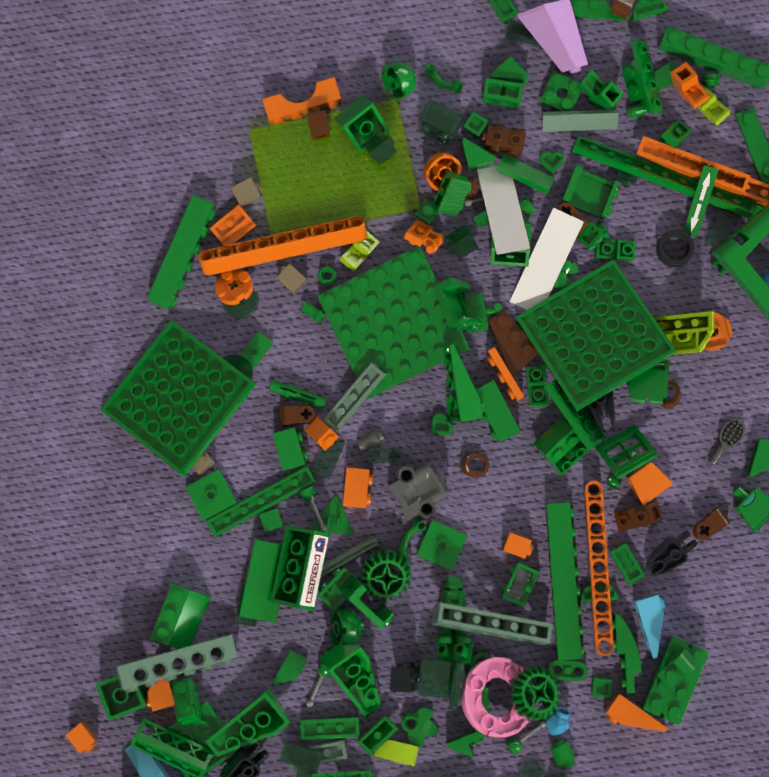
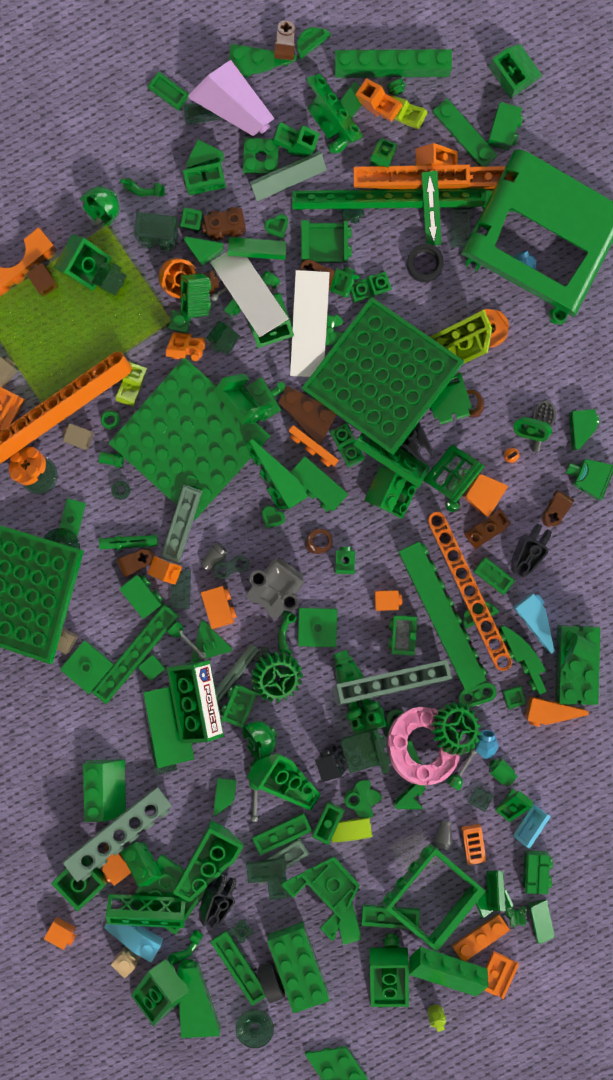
camera: 20 degrees left, 5 degrees up
(310, 337) = (114, 490): none -> clear green plate
(353, 590) = (252, 705): green window -> none
(487, 498) = (348, 568): none -> green brick
(687, 461) = (508, 452): none -> orange hinge
(717, 441) = (533, 430): none -> green plate
(723, 155) = (435, 155): none -> orange slope

